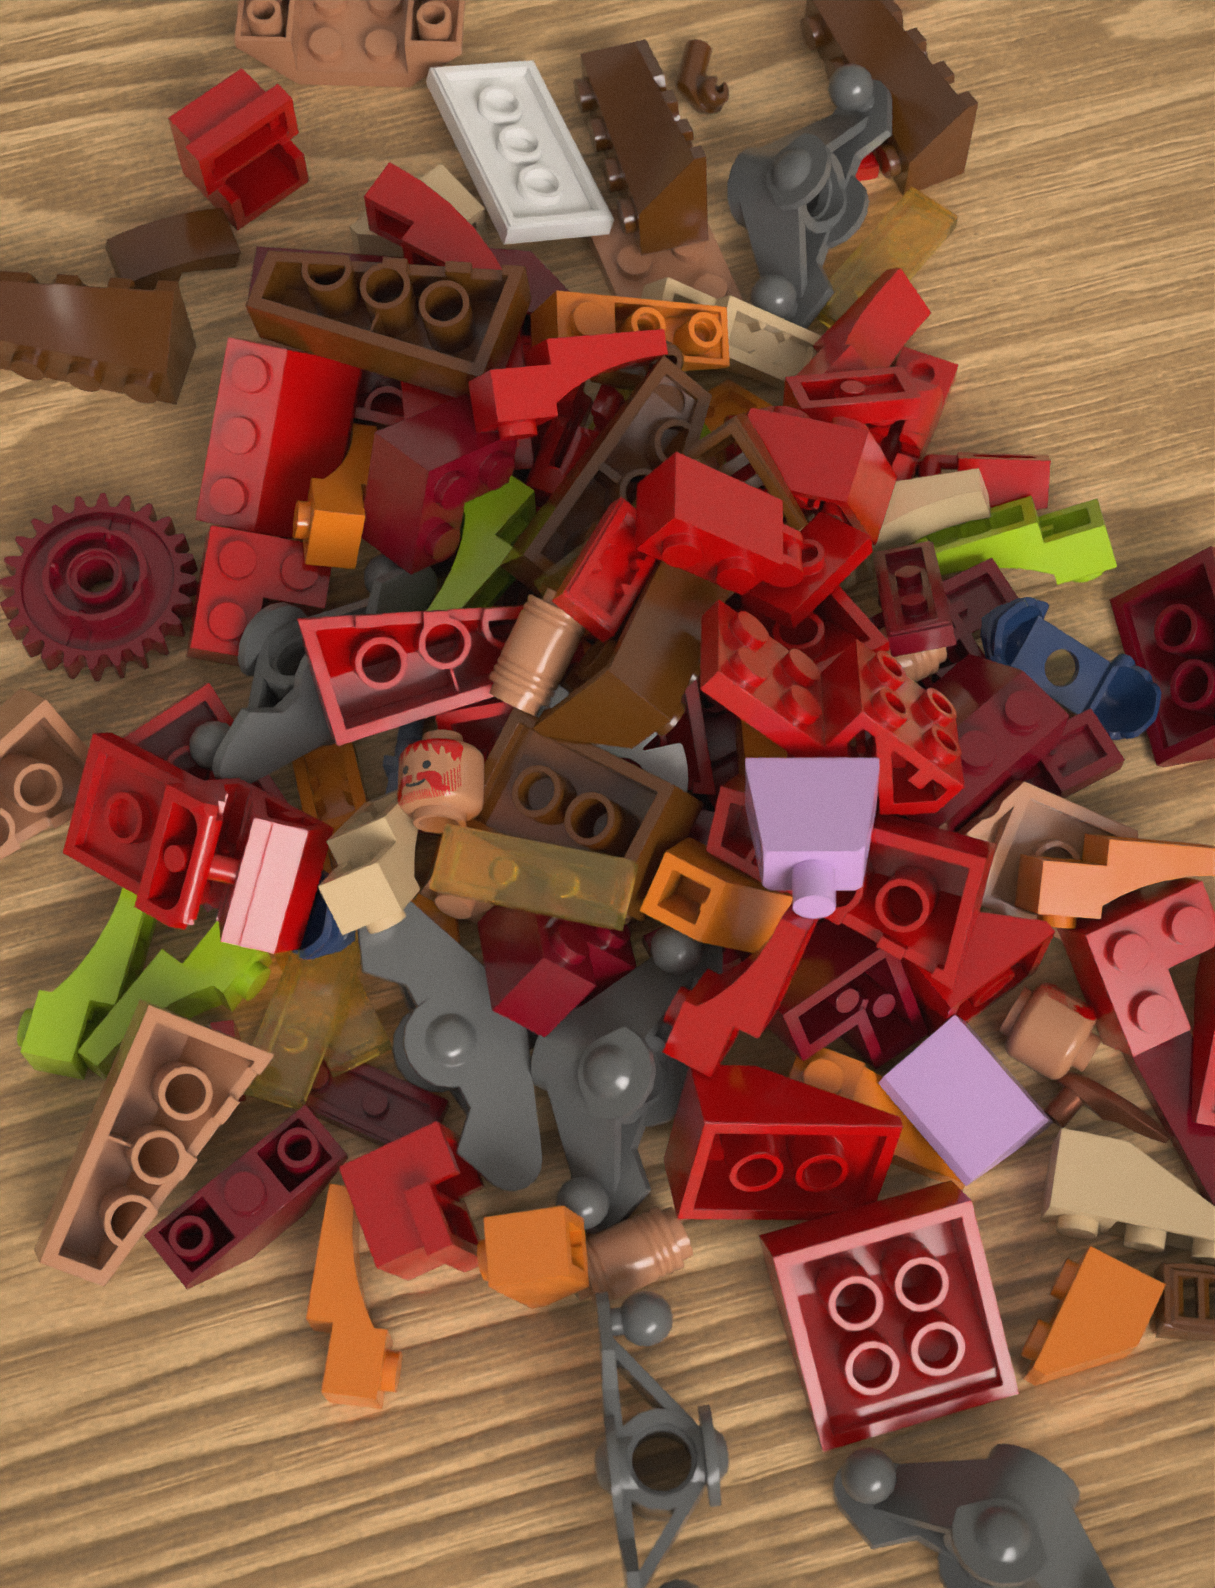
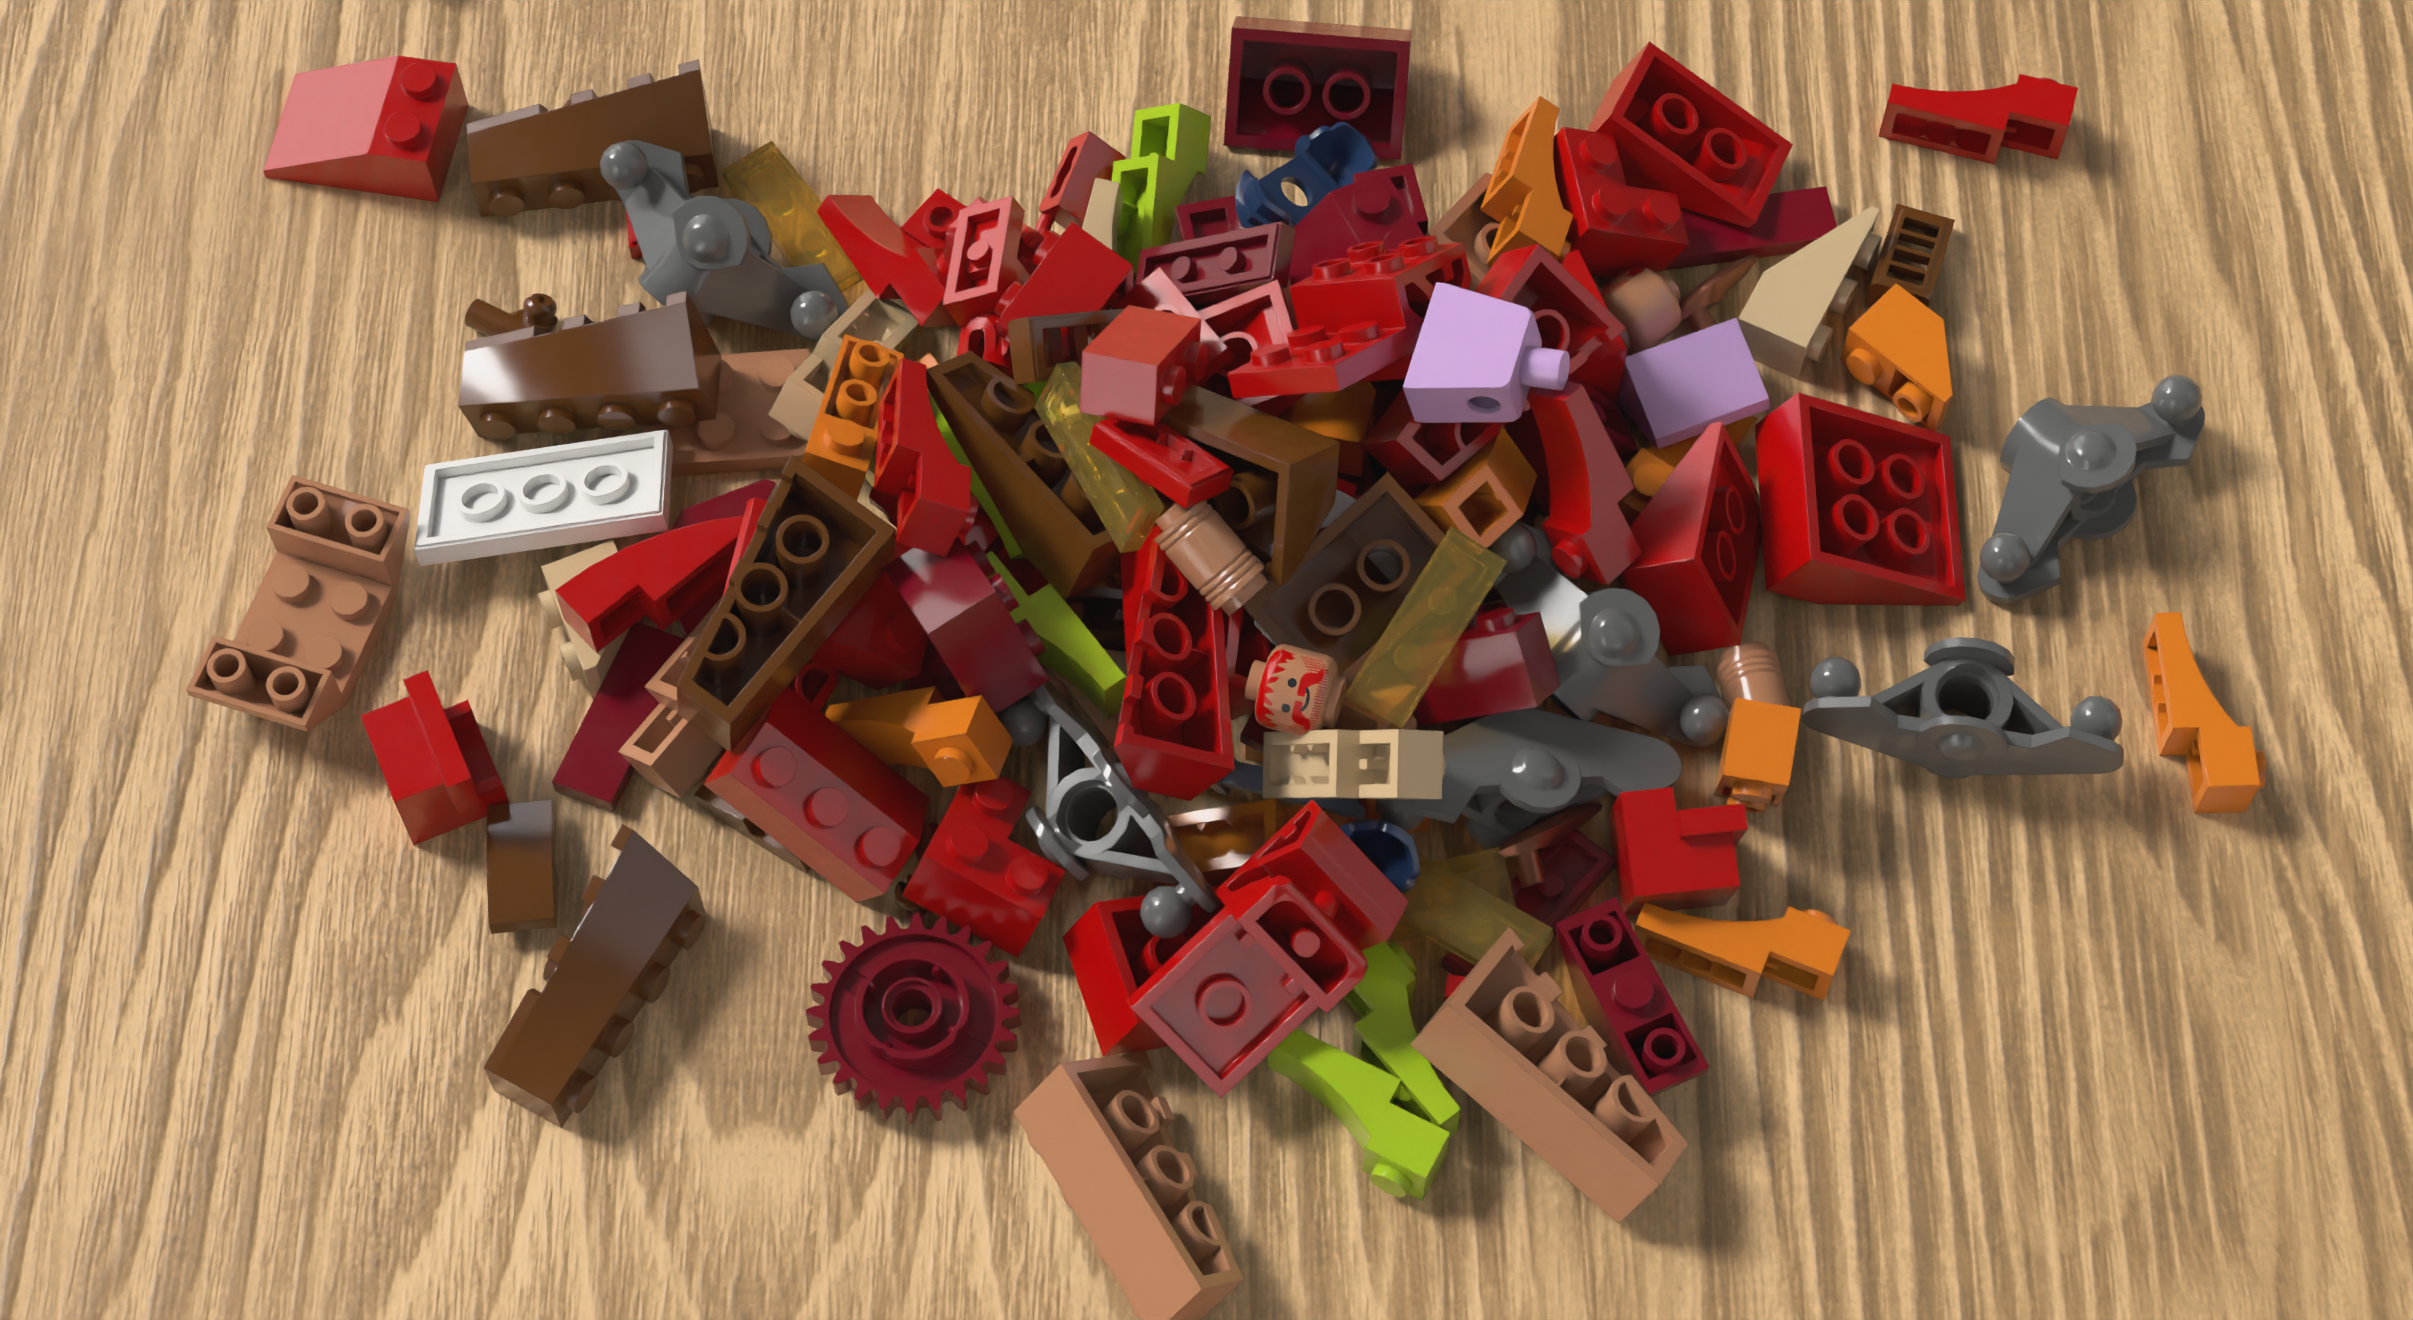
camera: 75 degrees left, 5 degrees down
(394, 1064) = (1526, 843): none -> copper bar

